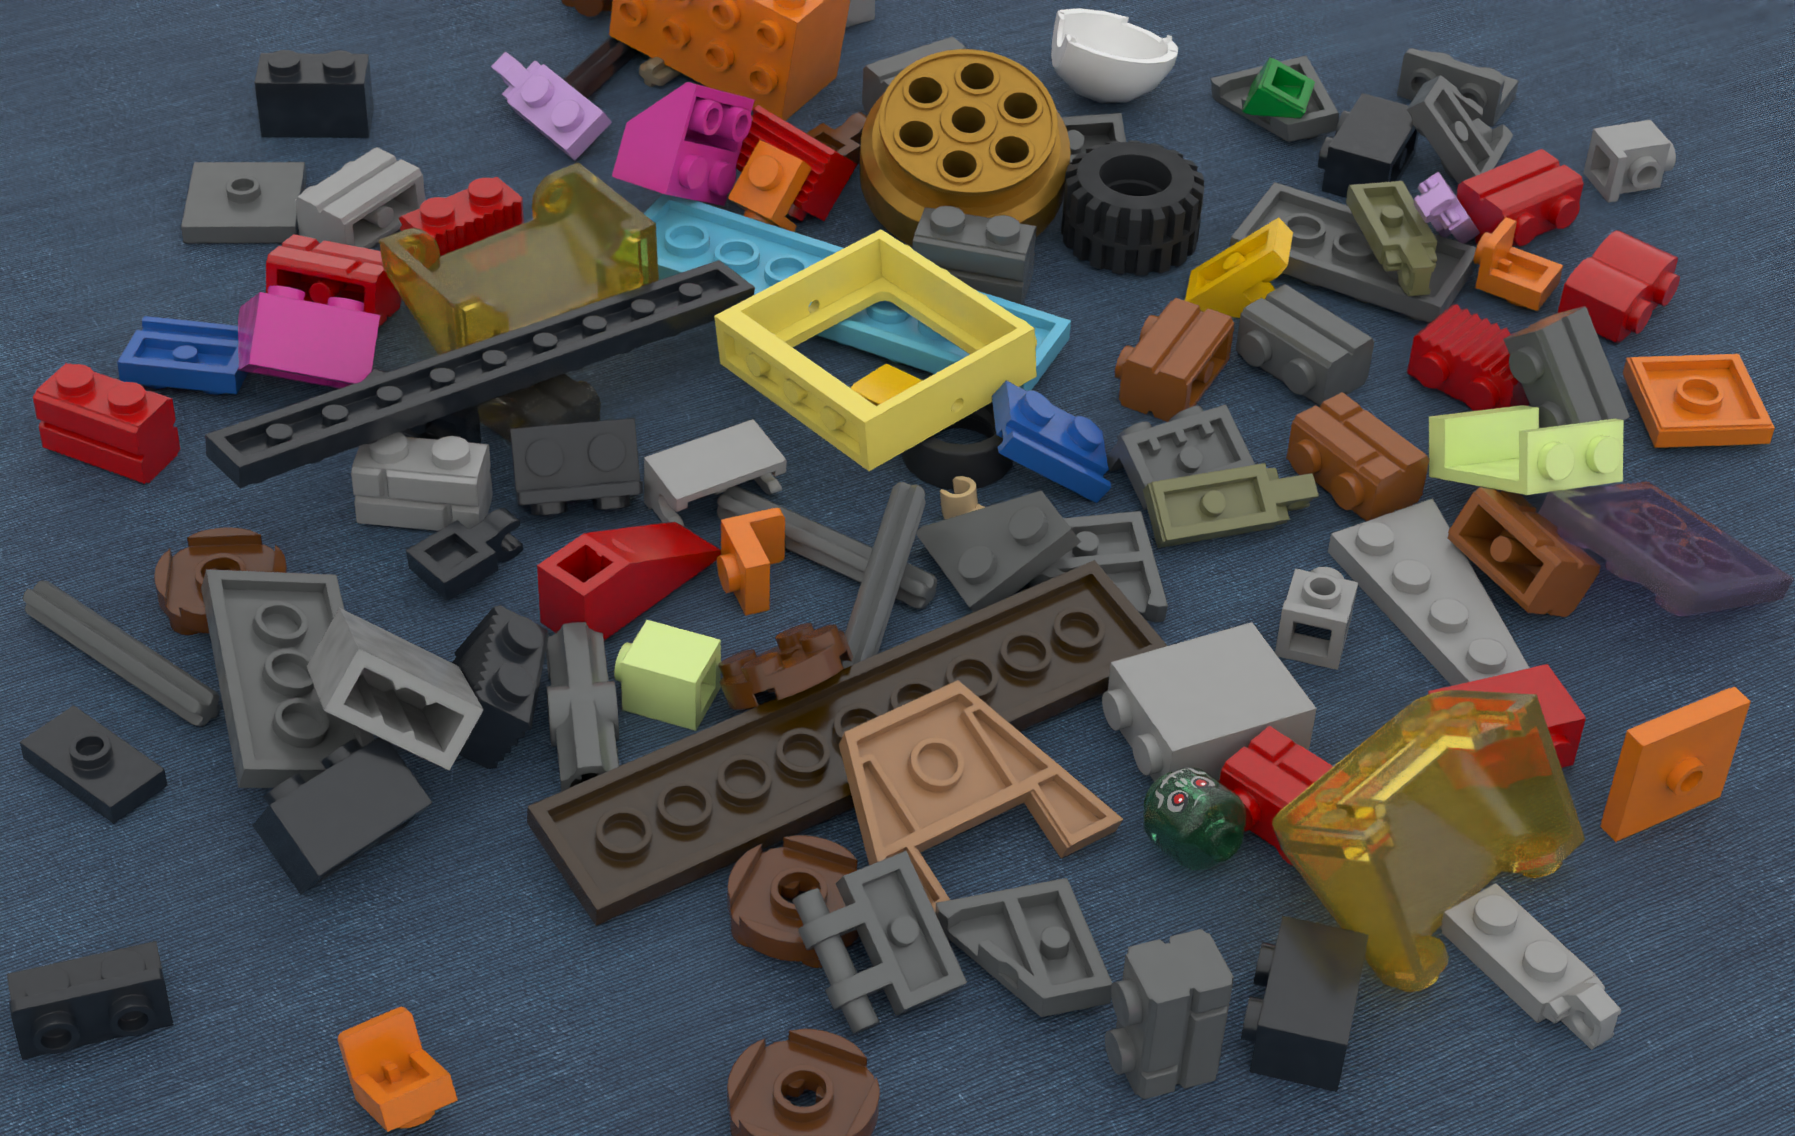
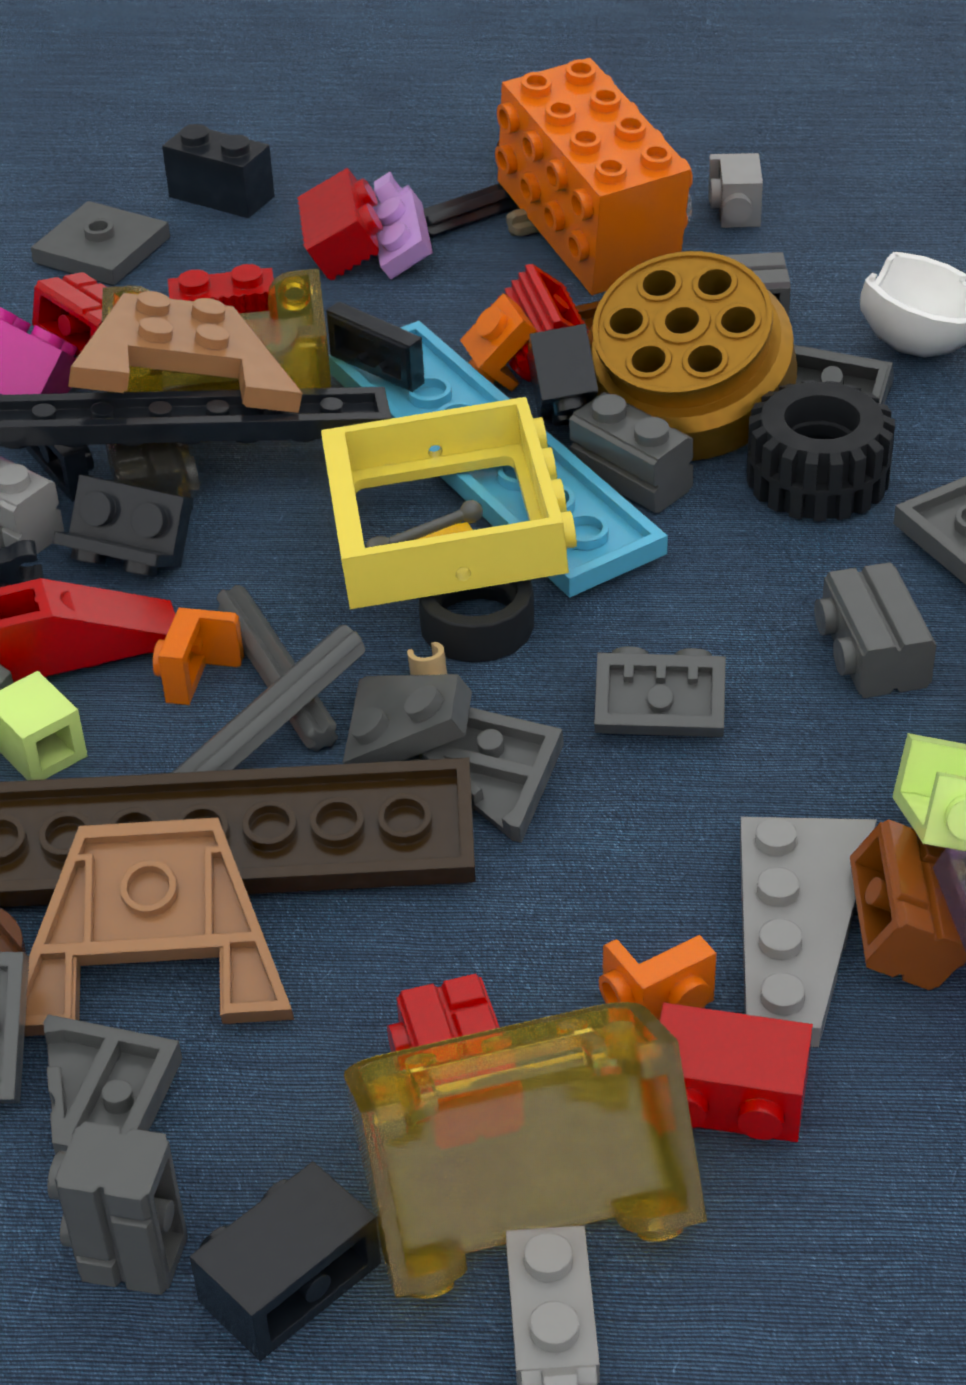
camera: 35 degrees right, 0 degrees up
(361, 200) = (167, 254): light grey brick -> none
(498, 116) = (340, 223): none -> red brick
(501, 266) = (186, 338): none -> medium nougat wing
(685, 224) = (375, 346): none -> black plate
(686, 144) = (442, 279): dark pink slope -> none
(710, 467) = (228, 561): light grey hinge -> none
(797, 663) = (95, 755): reddish brown plate -> none
(871, 198) = (561, 372): none -> black brick
(904, 350) = (470, 512): none -> dark grey hinge
(1051, 441) = (539, 638): blue plate -> none
(1174, 359) = (738, 602): dark orange brick -> none
(1194, 818) = (341, 1027): clear green head -> none
(1204, 701) = (458, 921): light grey brick -> none
(1224, 503) = (661, 751): olive hinge -> none
(1241, 271) = (877, 540): yellow slope -> none
(1317, 600) = (649, 891): light grey brick -> none
(1357, 458) = (827, 753): dark orange brick -> none
(1380, 694) = (675, 977): none -> orange bracket
(1674, 763) = (854, 1180): orange plate -> none

